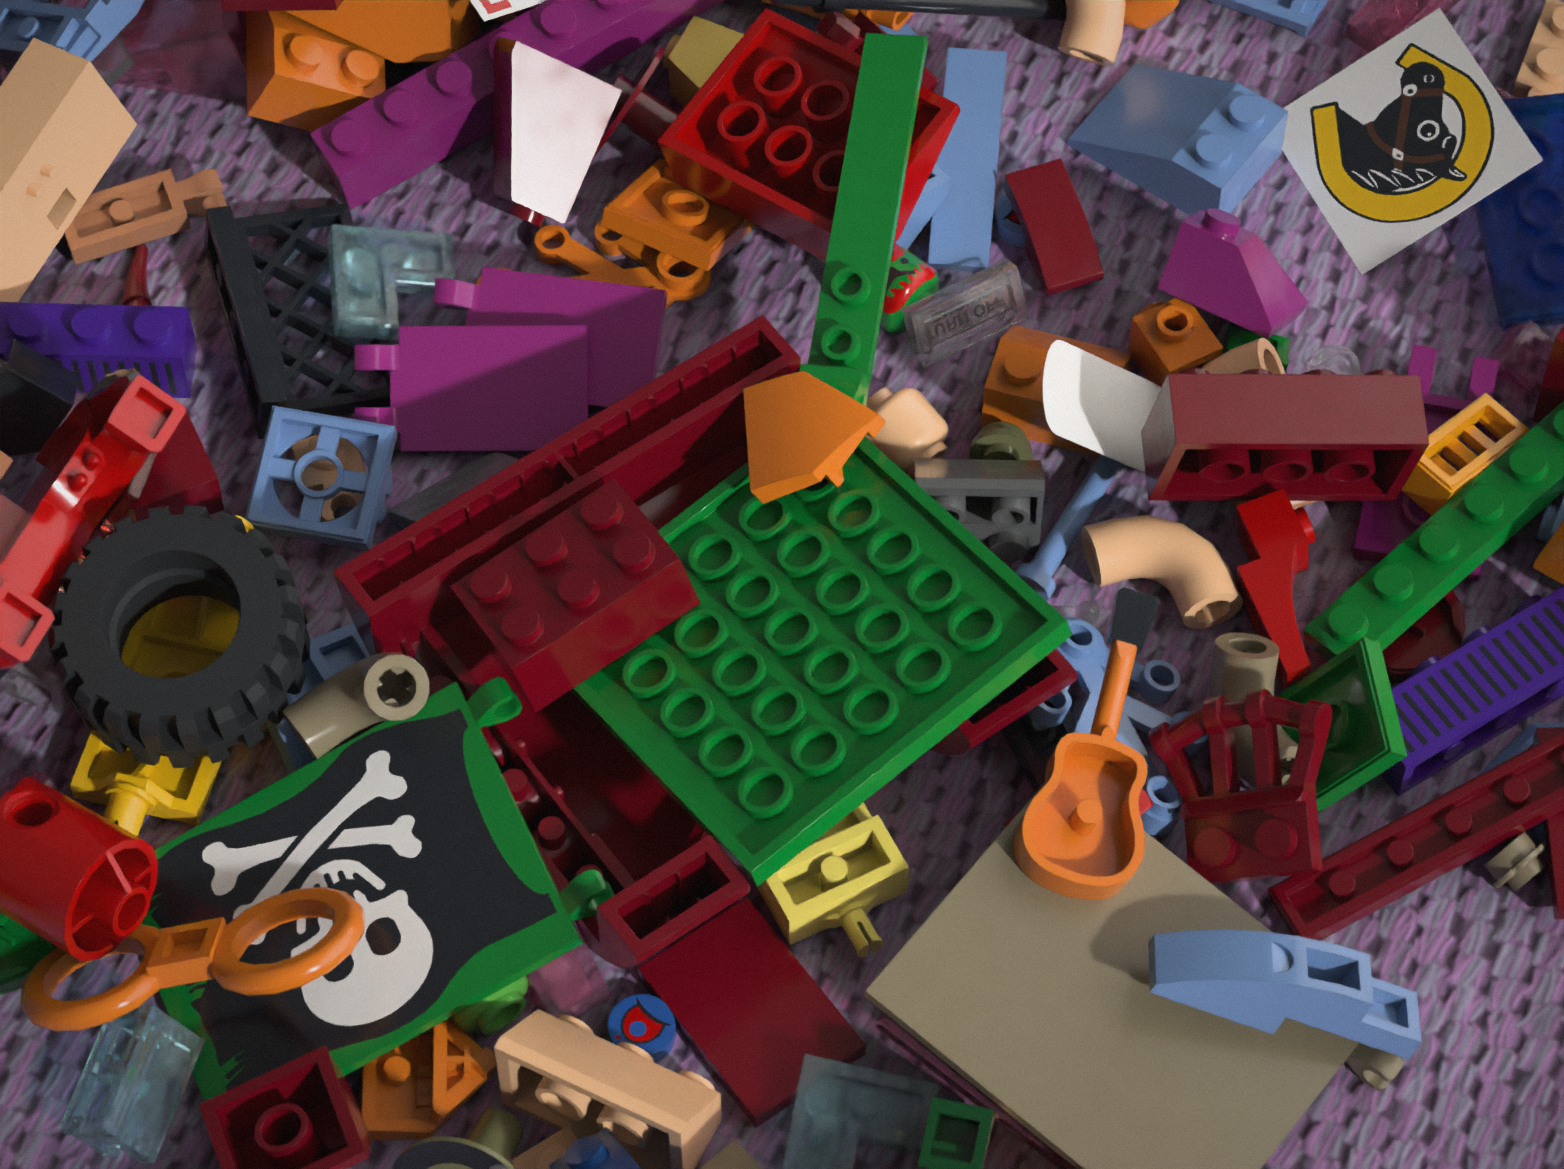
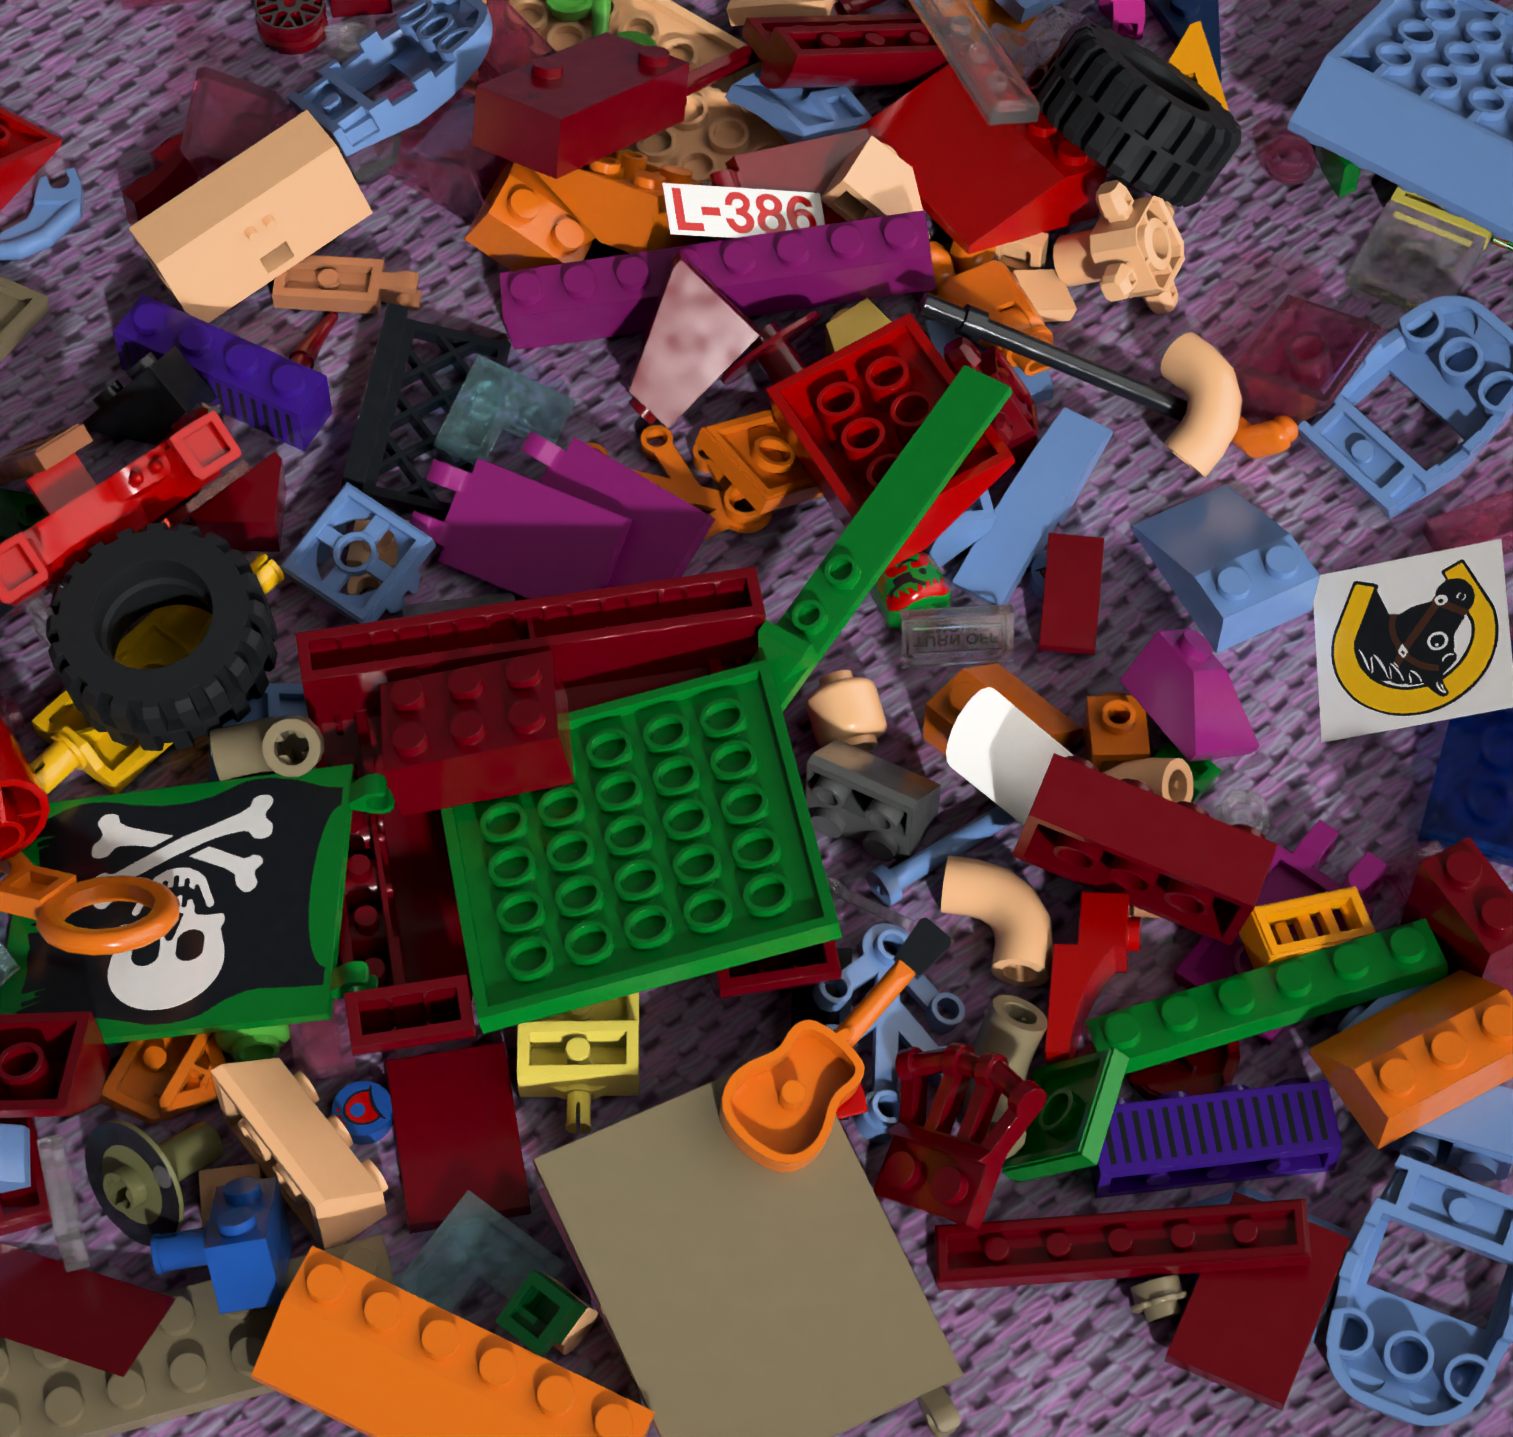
camera: 25 degrees right, 0 degrees up
(801, 433) = (724, 677): orange slope -> none
(1000, 442) = (922, 757): olive plate -> none
(1277, 976) = (877, 1300): medium blue slope -> none

